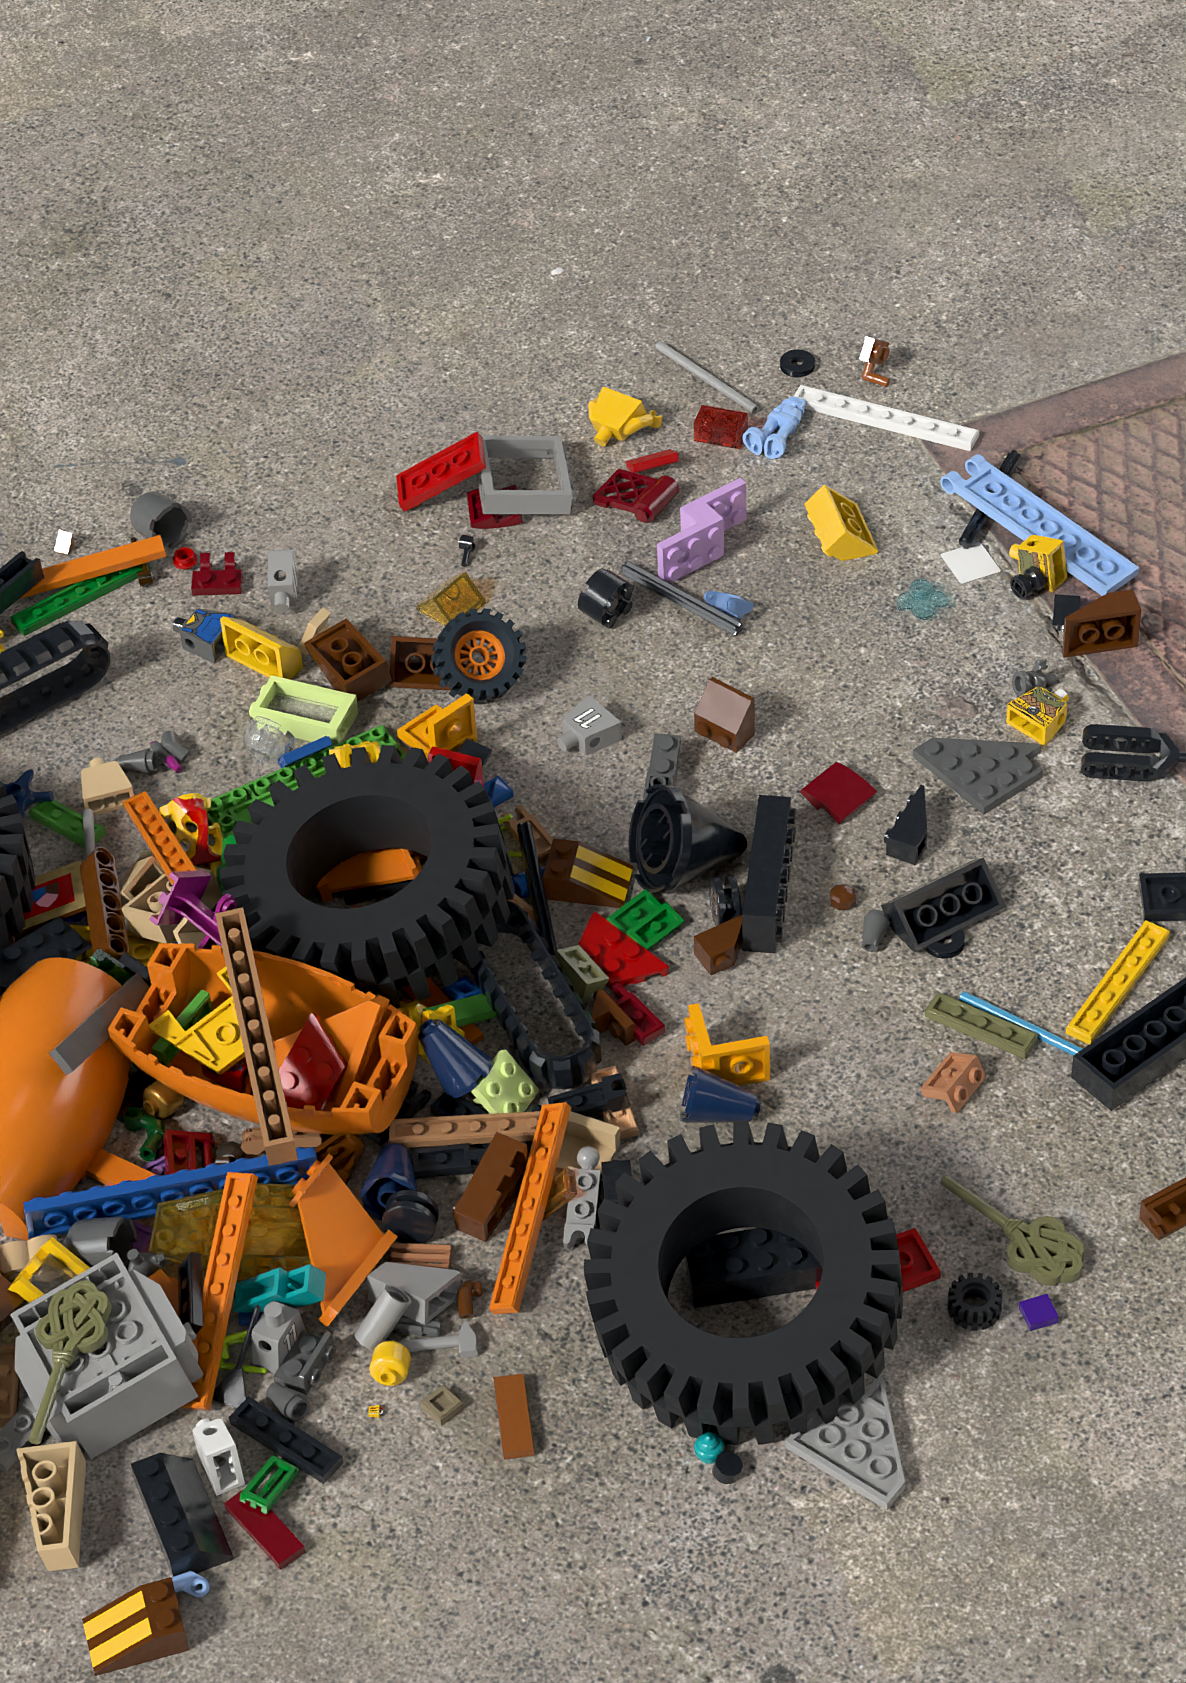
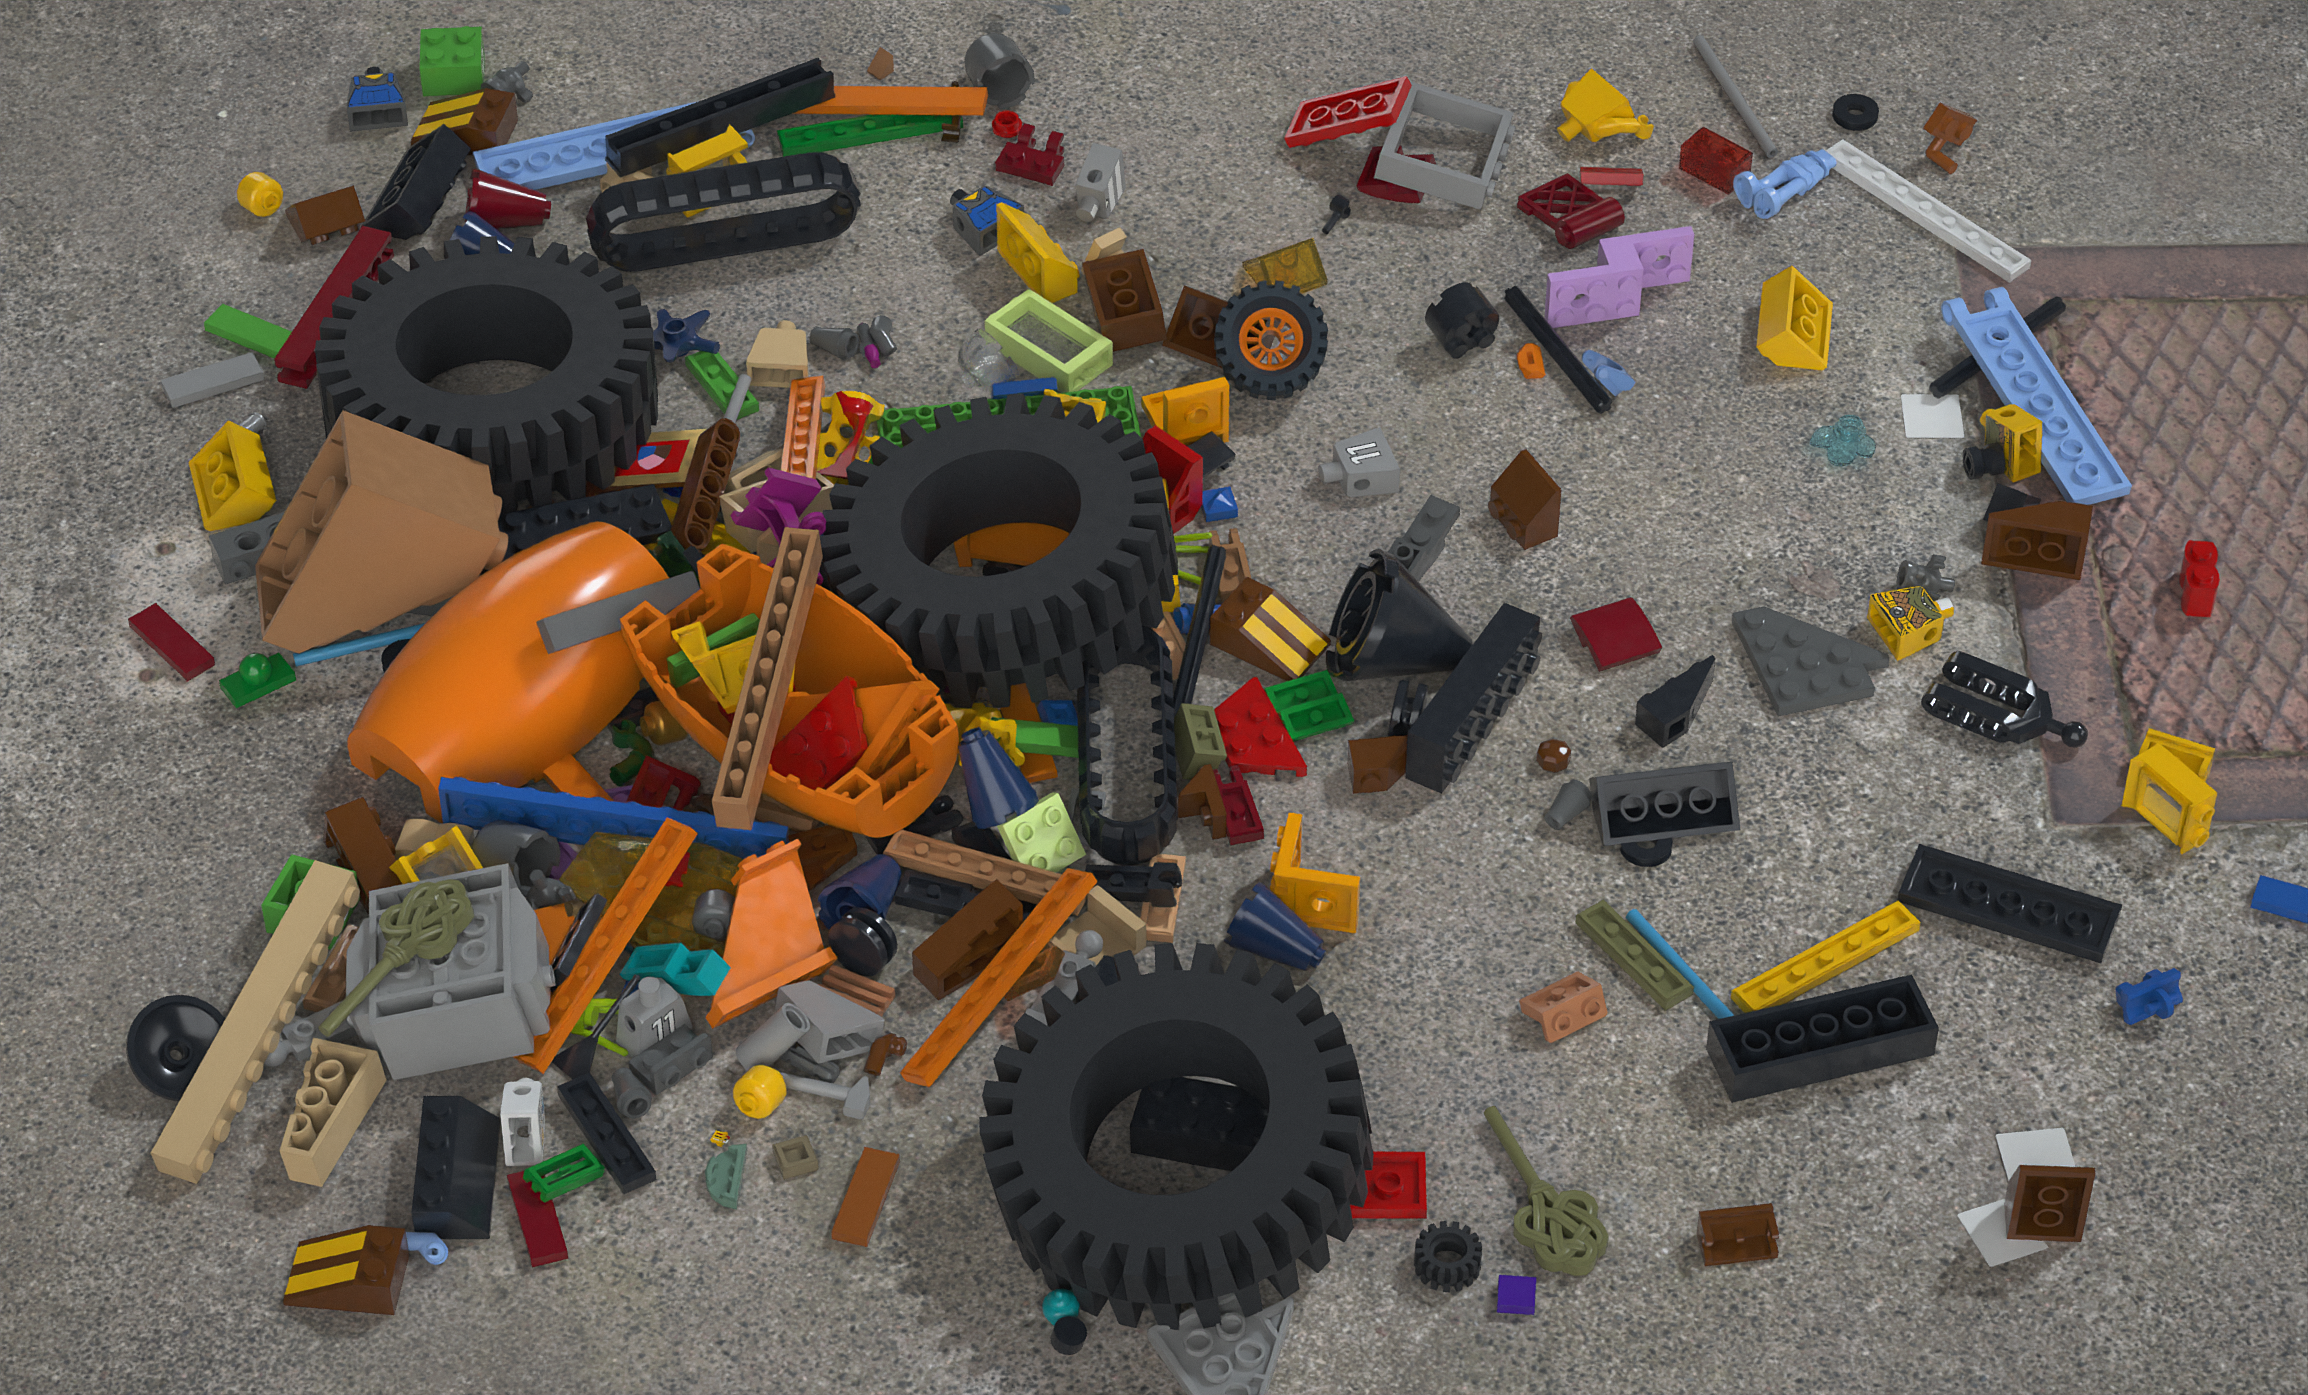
camera: 20 degrees right, 0 degrees up
(287, 1236) = (713, 914): none -> dark grey head
(395, 1440) = (725, 1175): none -> sand green tile
(666, 613) = (1531, 361): none -> orange piece

